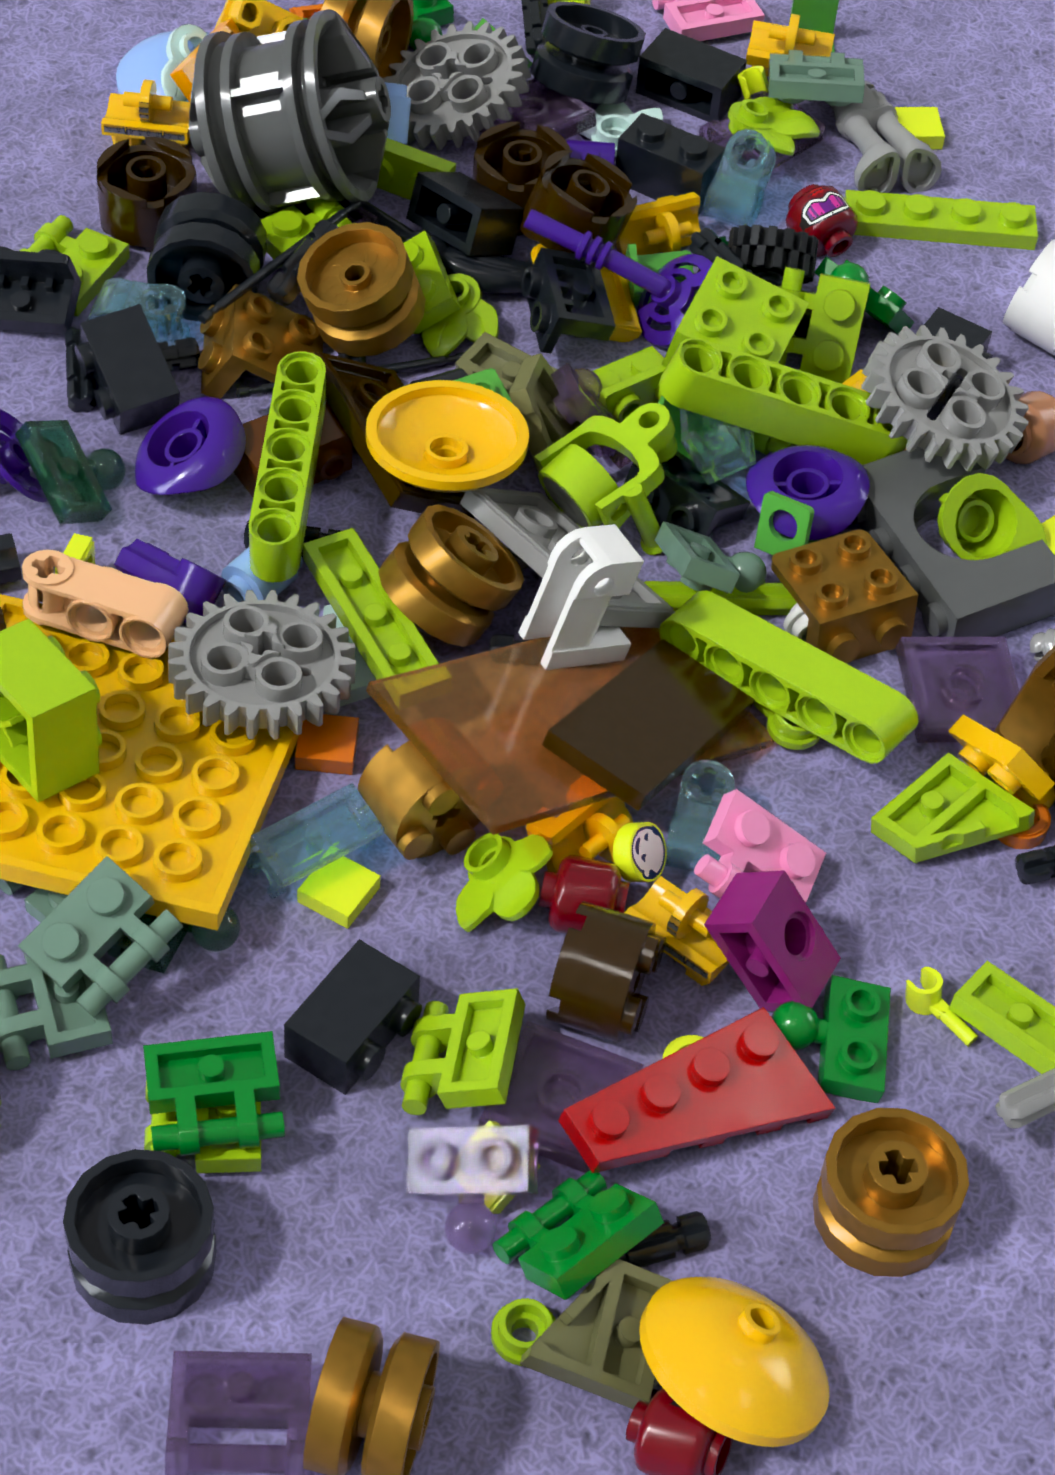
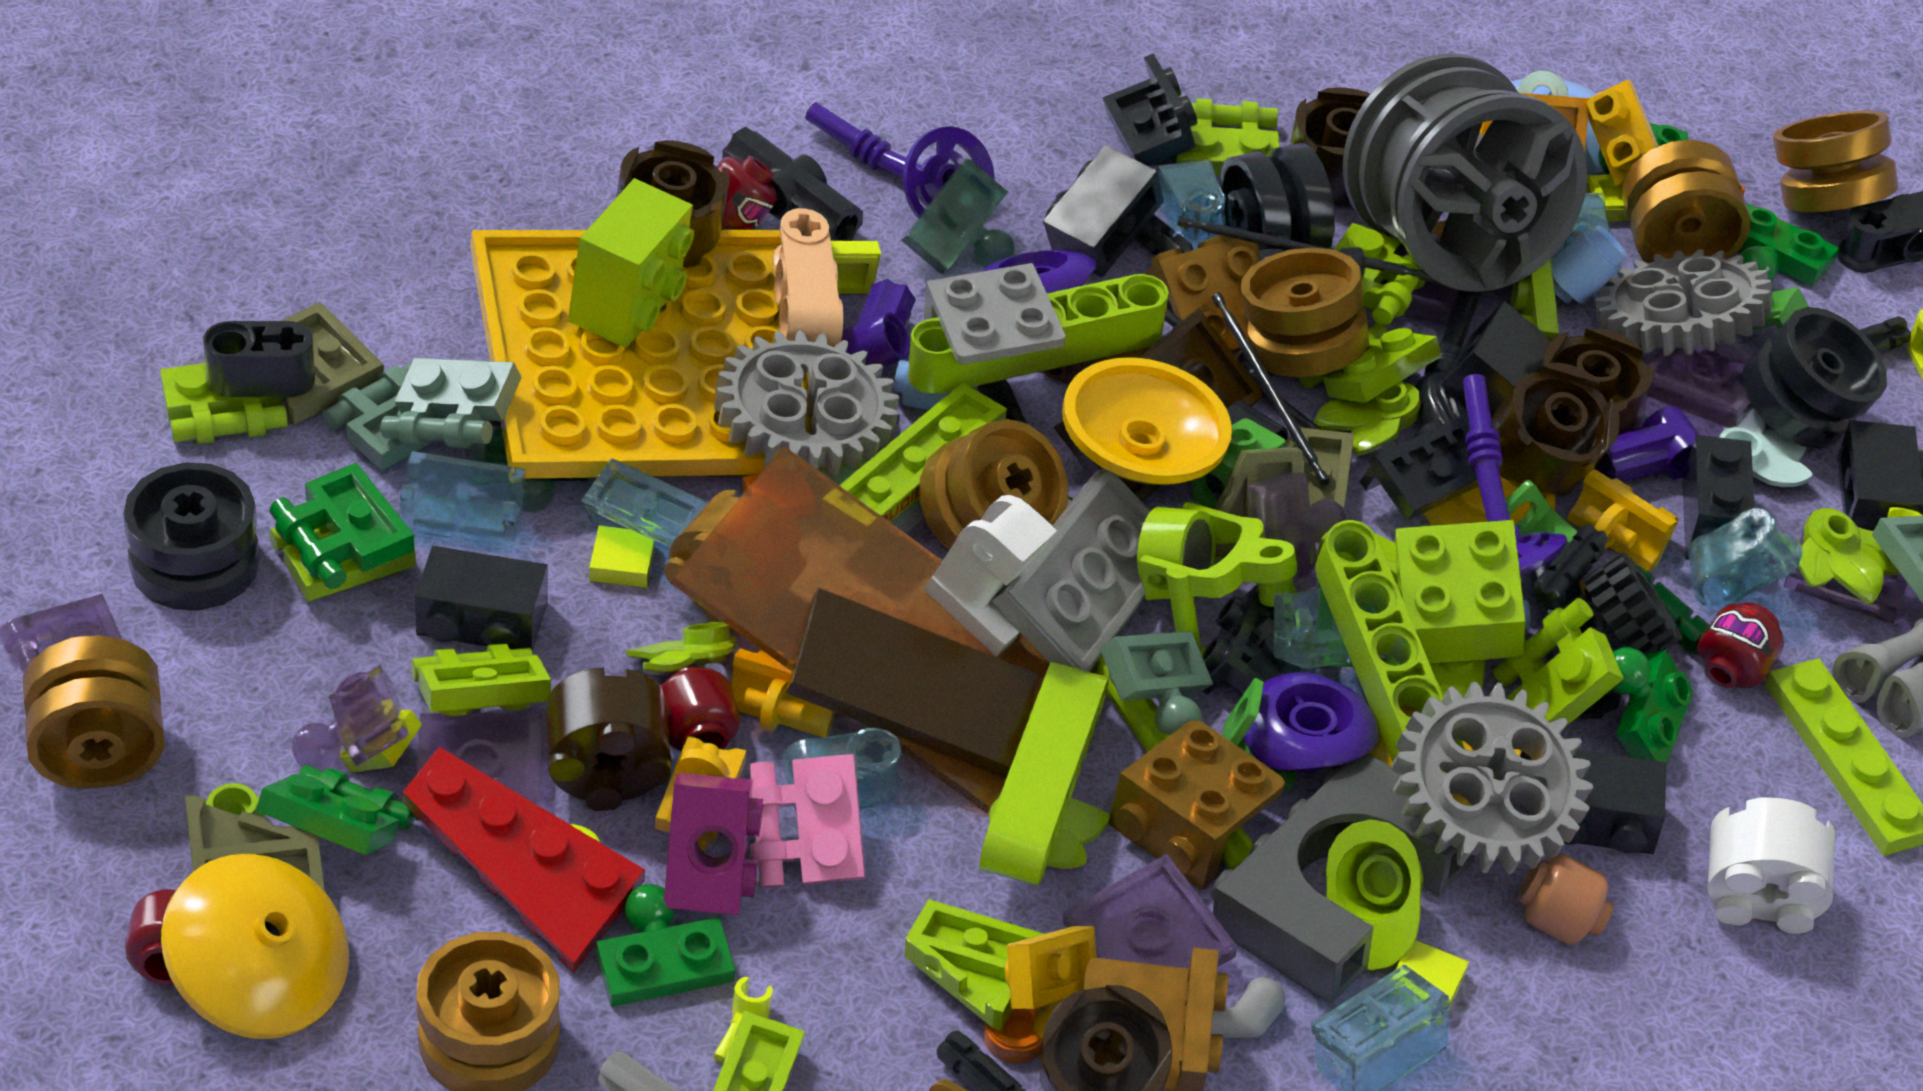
camera: 65 degrees right, 5 degrees down
(211, 984) = (463, 501): none -> clear light blue hinge
(270, 476) = (994, 313): none -> light grey bracket
(400, 355) = (1270, 389): none -> black piece
(640, 852) = (763, 727): tile -> none
(687, 1234) = (366, 879): black axle -> none

